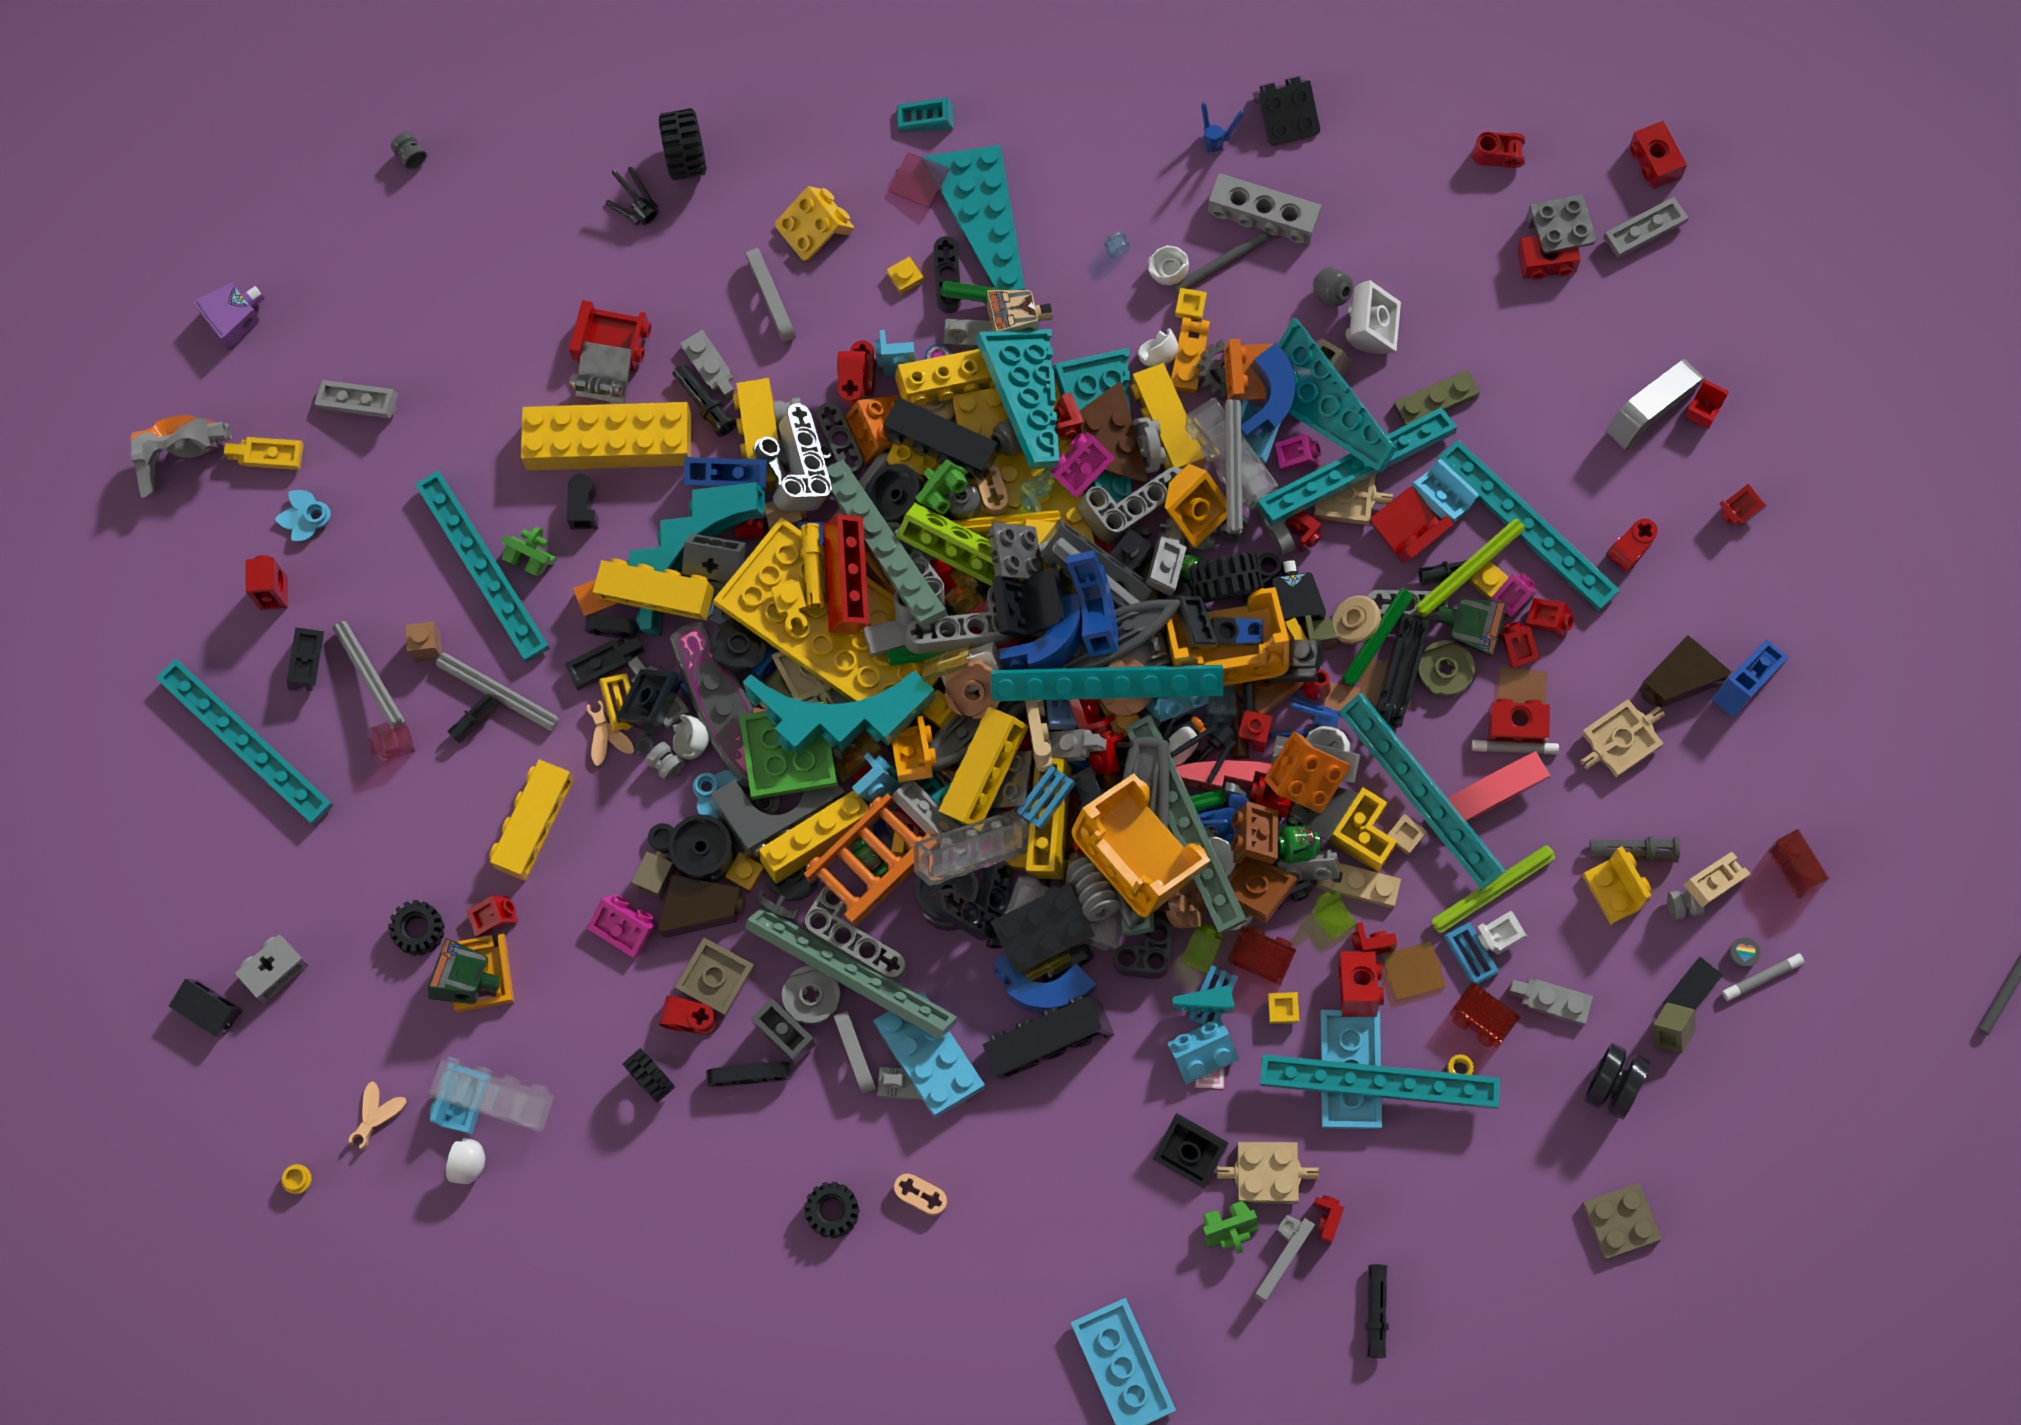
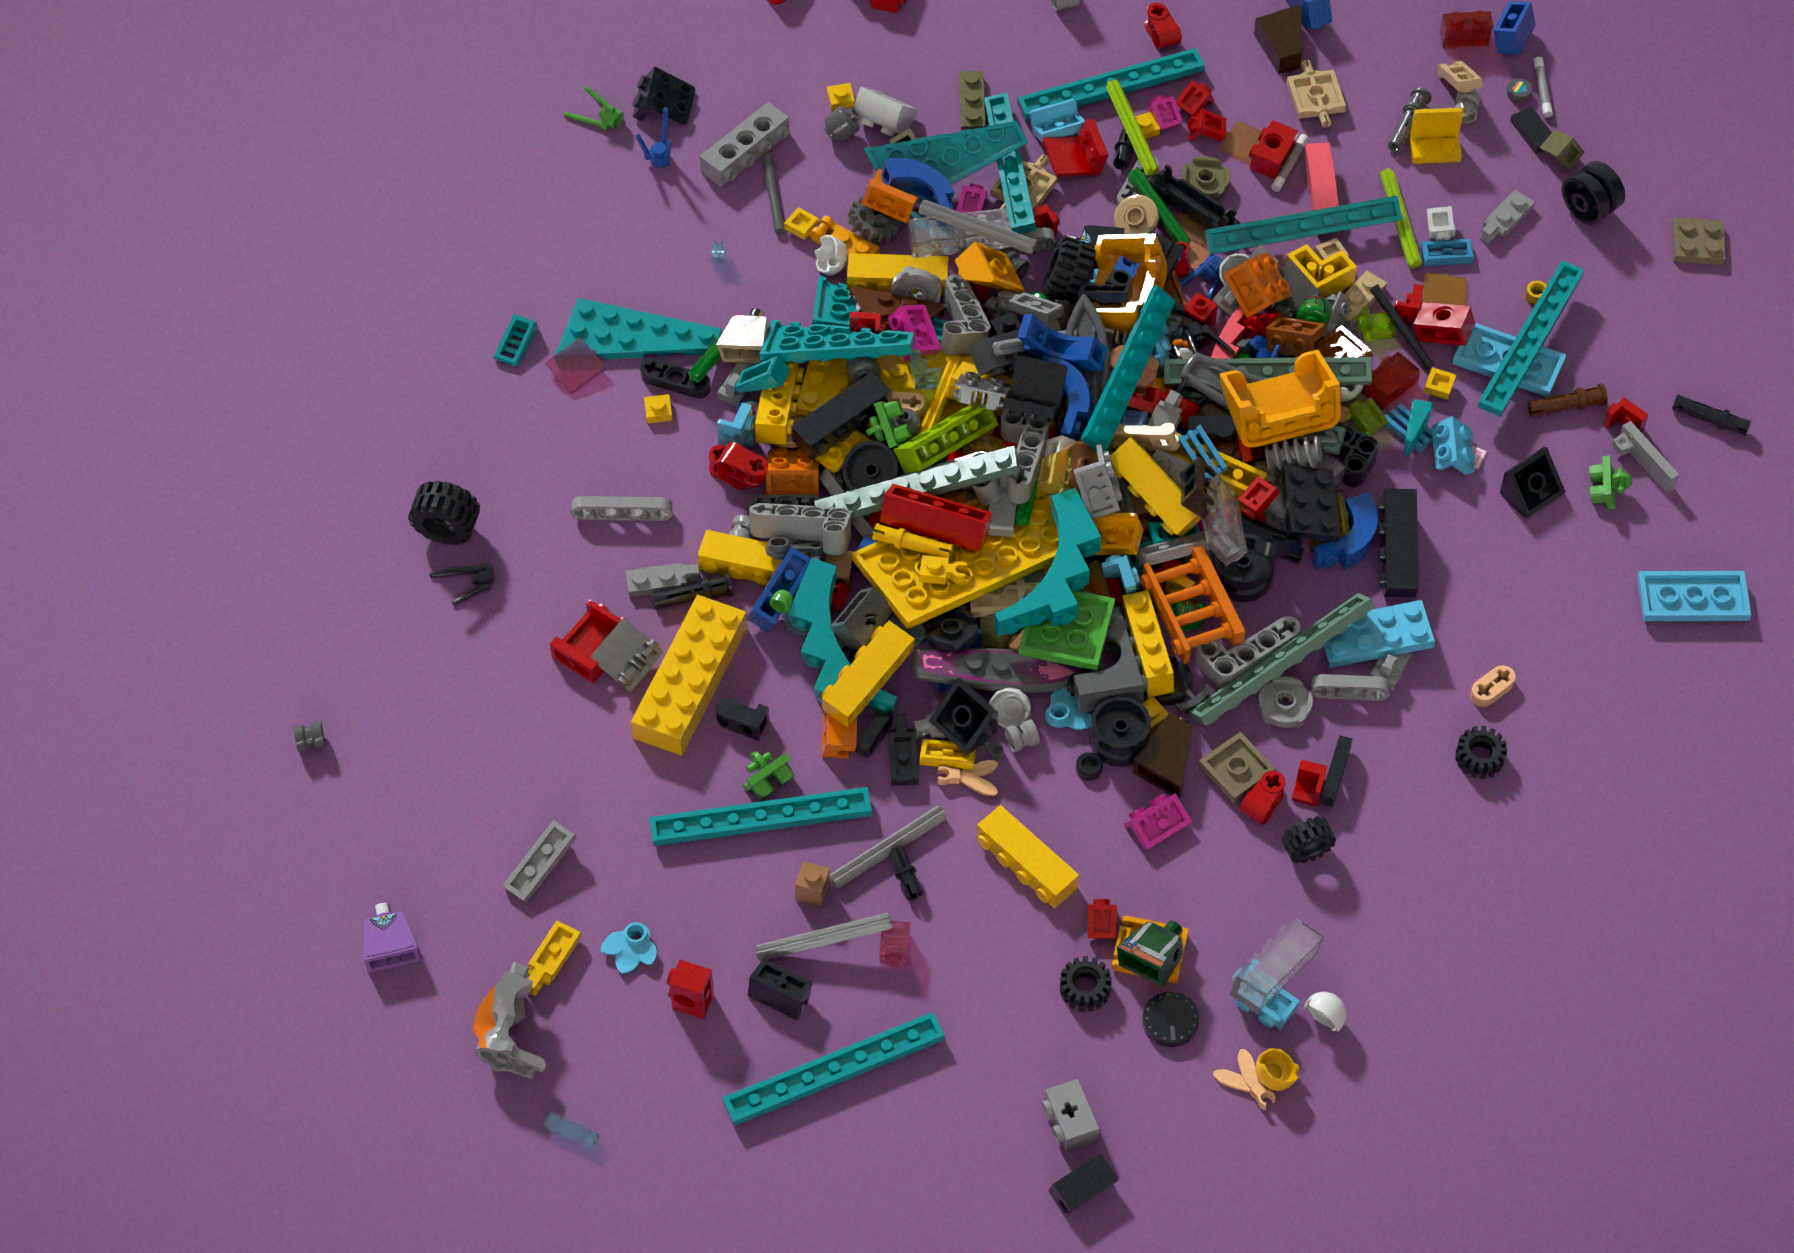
camera: 70 degrees left, 15 degrees down
(104, 548) = (571, 1130): none -> clear light blue axle
(296, 1179) = (1281, 1162): yellow plate -> none
(386, 1138) = (1276, 1069): none -> yellow hair
(411, 1020) = (1170, 1019): none -> black tile
(654, 874) = (1123, 779): dark tan brick -> none
(703, 478) = (781, 601): none -> bright green hinge
(724, 1052) = (1309, 783): none -> red panel
(783, 1031) = (1312, 727): dark grey brick -> none
(812, 221) = (571, 455): yellow bracket -> none
(946, 716) = (1099, 485): none -> light grey bracket
(961, 348) = (763, 376): none -> teal slope
(987, 807) = (1195, 486): none -> black hinge
(1016, 873) = (1257, 499): none -> red bracket
(1168, 265) = (759, 223): white hair -> none
(1240, 72) = (609, 114): none -> bright green plant
(1267, 1172) = (1572, 443): tan plate -> none
(1332, 1162) = (1578, 399): none -> reddish brown pin
(1337, 942) = (1402, 327): none -> black bar
(1378, 270) = (840, 96): none -> yellow plate
(1474, 623) = (1180, 142): torso -> none
(1484, 1016) = (1502, 259): clear red brick -> none
(1824, 914) = (1514, 27): none -> blue brick

